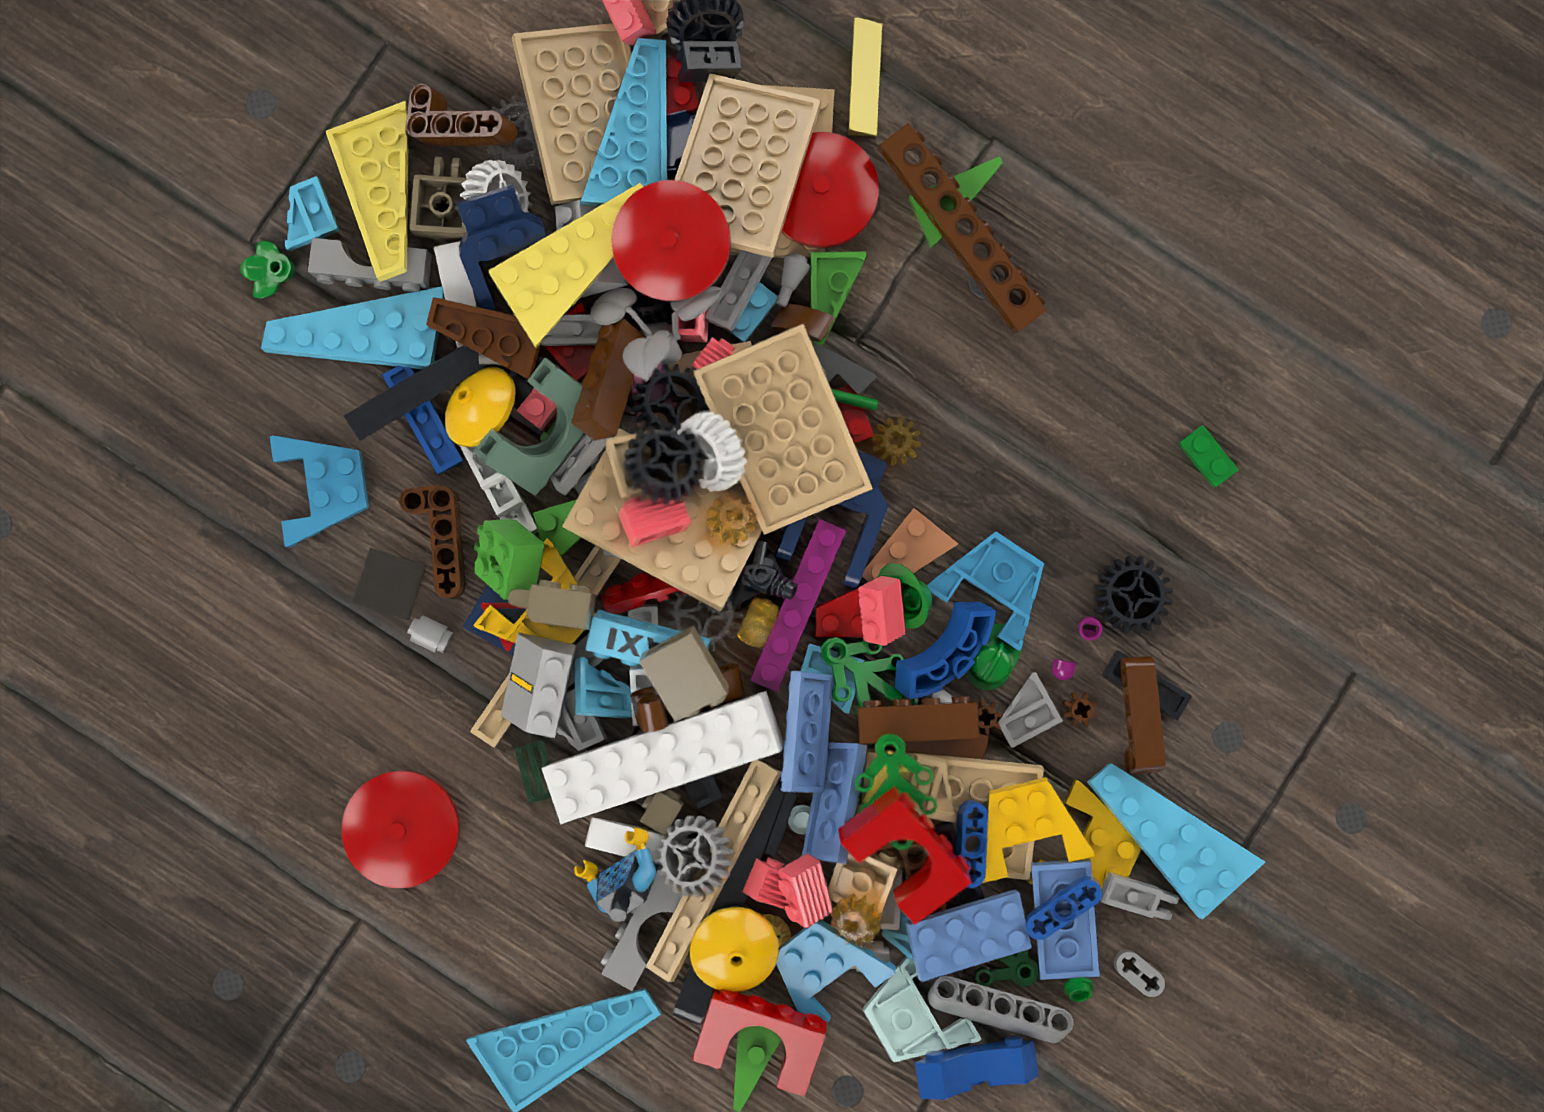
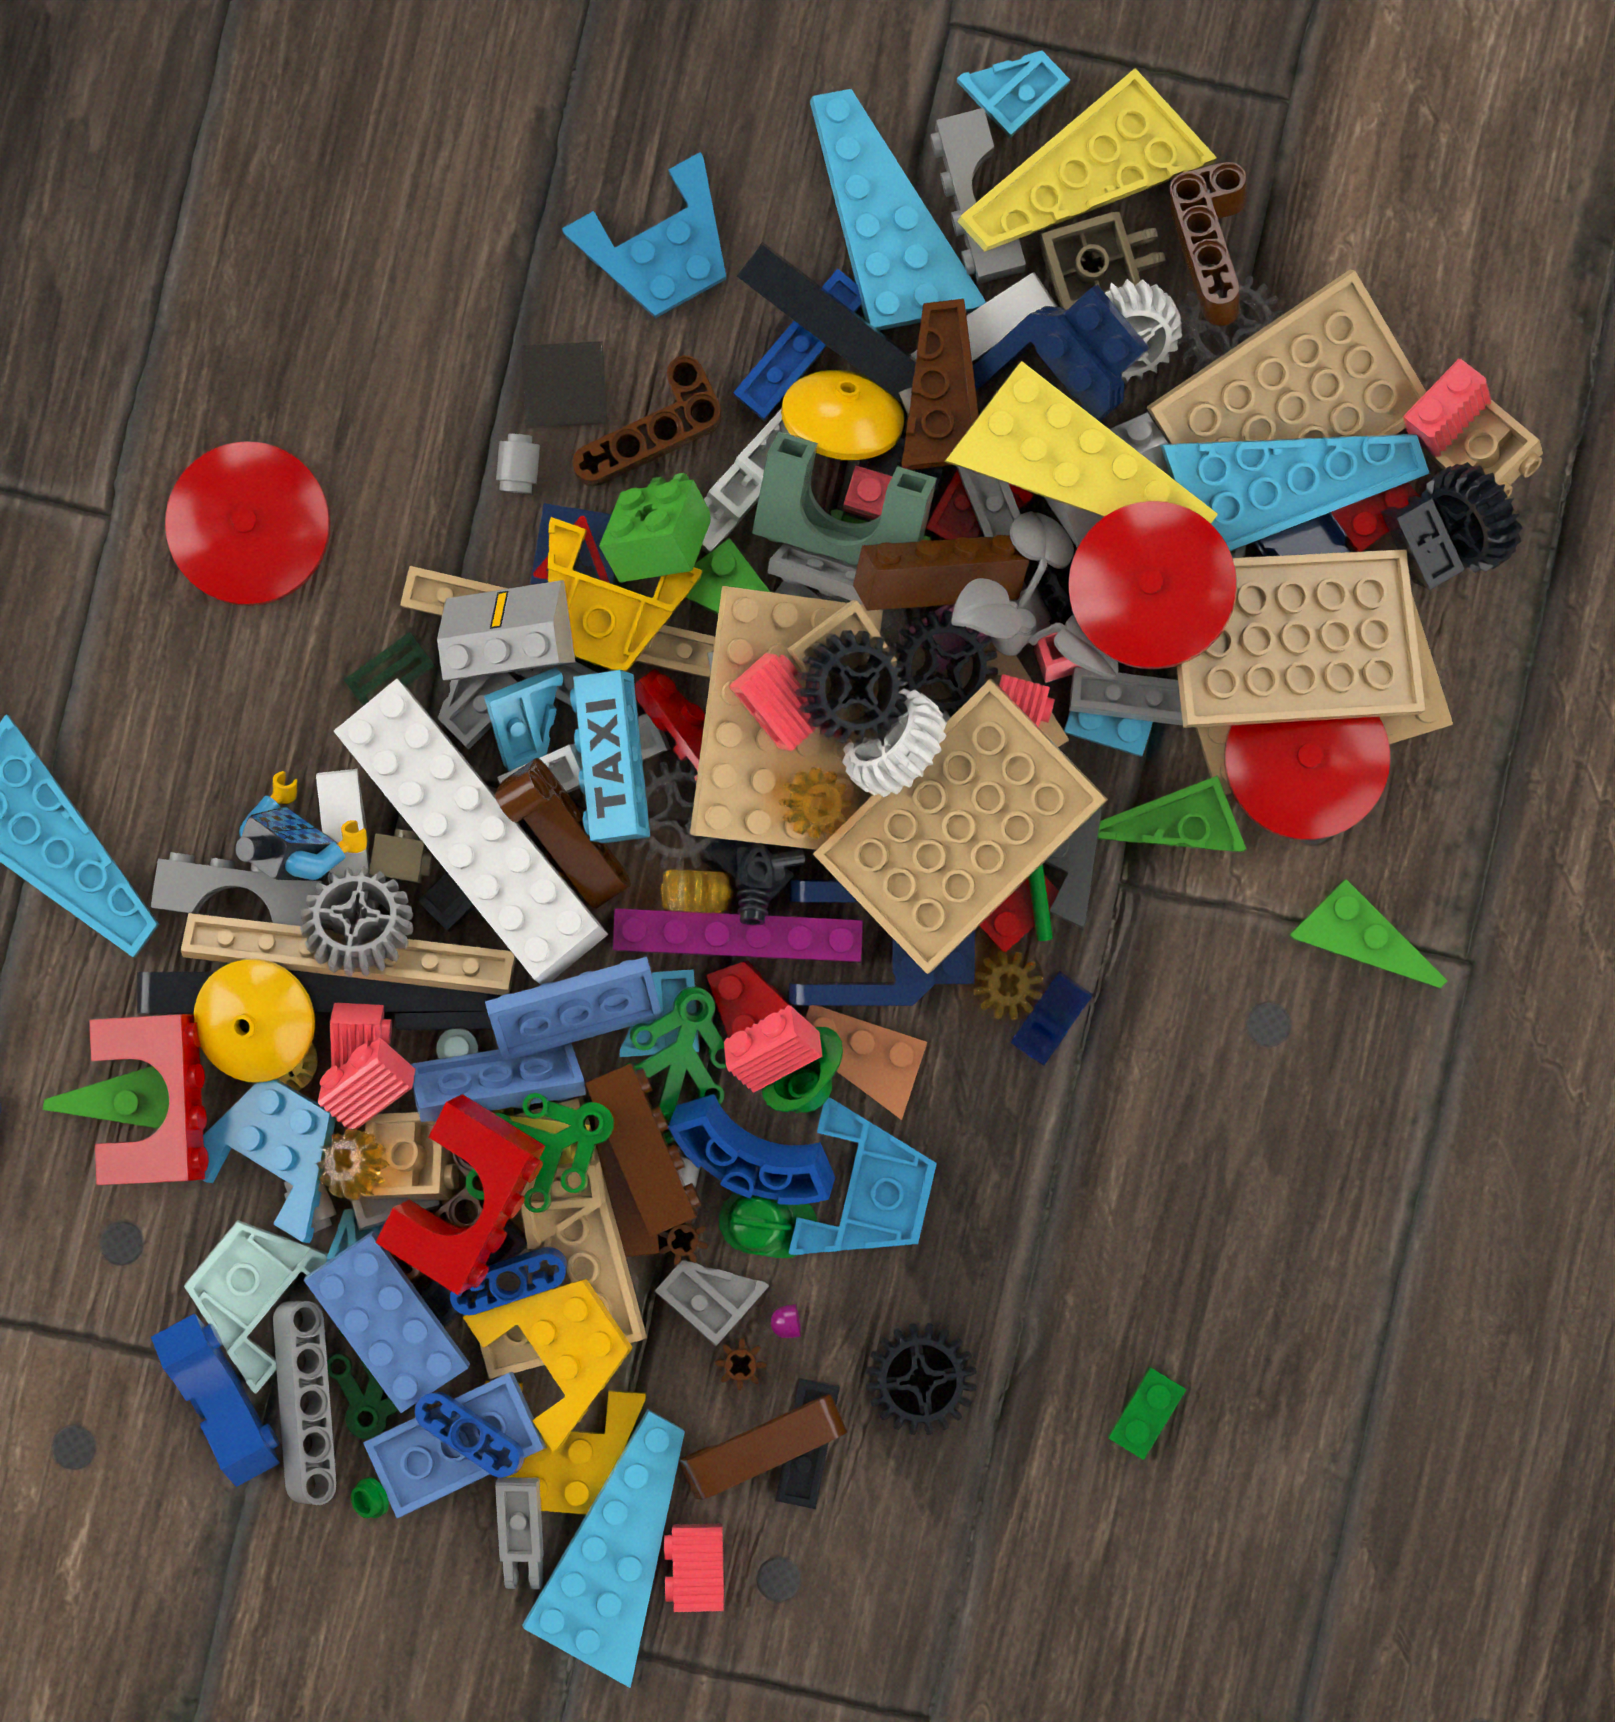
camera: 70 degrees right, 0 degrees up
(263, 269) = (919, 56): green plate -> none
(556, 606) = (615, 617): dark tan hinge -> none
(684, 674) = (589, 818): dark tan brick -> none
(793, 272) = (1181, 762): light grey cone -> none
(815, 321) = (1122, 811): reddish brown slope -> none
(865, 78) = (1485, 759): light yellow slope -> none
(926, 418) = (1051, 1018): none -> clear blue slope
(946, 222) = (1237, 1083): reddish brown brick -> none
(1088, 633) = (847, 1339): magenta hinge -> none
(1143, 967) = (410, 1570): light grey beam -> none
(1203, 788) = (697, 1567): none -> coral brick

